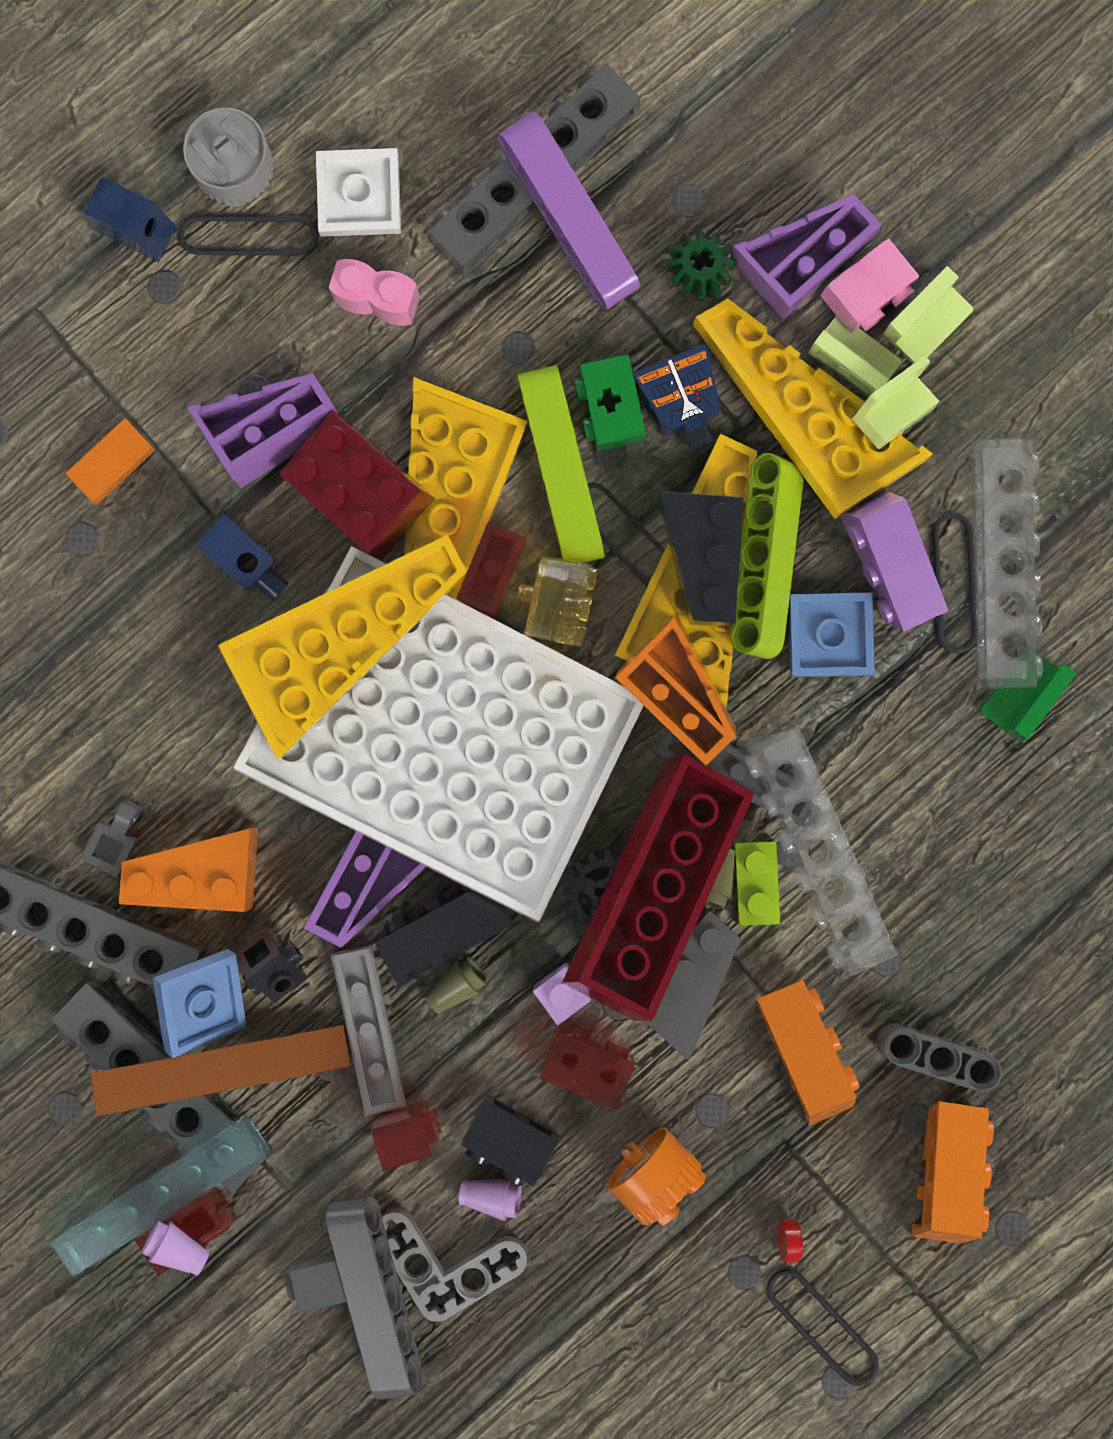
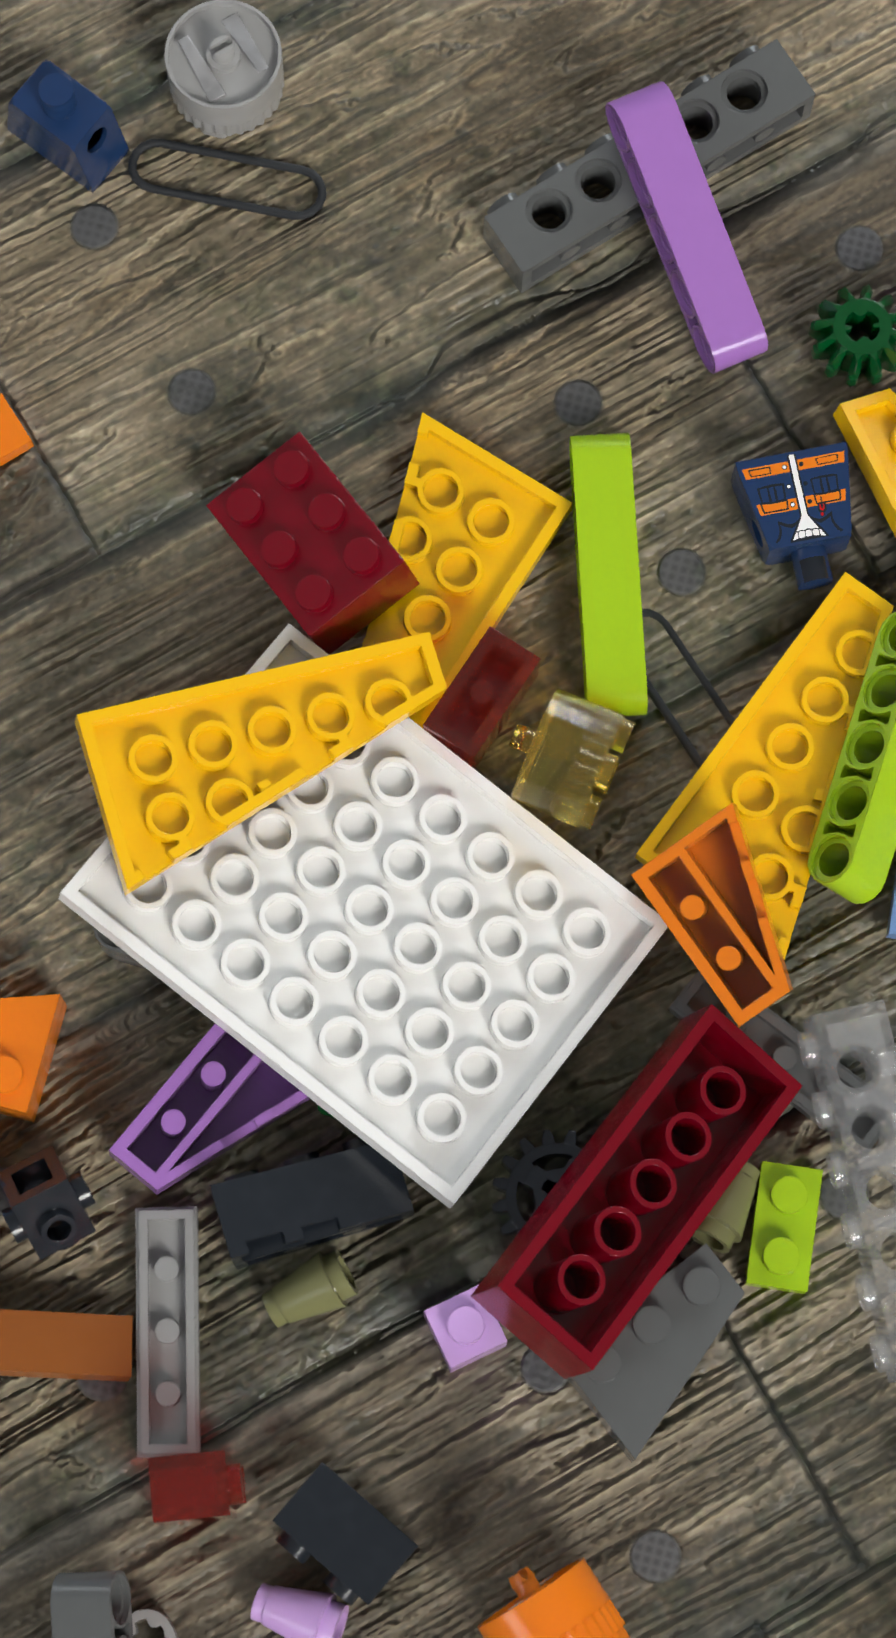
camera: 10 degrees right, 10 degrees down
(227, 545) = (116, 589): dark blue torso -> none
(263, 427) = (196, 440): medium lavender wedge -> none
(358, 192) = (395, 149): white plate -> none
(364, 291) = (378, 283): bright pink brick -> none
(588, 1066) = (482, 1445): clear red brick -> none
(614, 380) = (701, 468): green brick -> none
(706, 553) = (793, 729): black wedge -> none
(808, 1051) = (816, 1489): orange wedge -> none

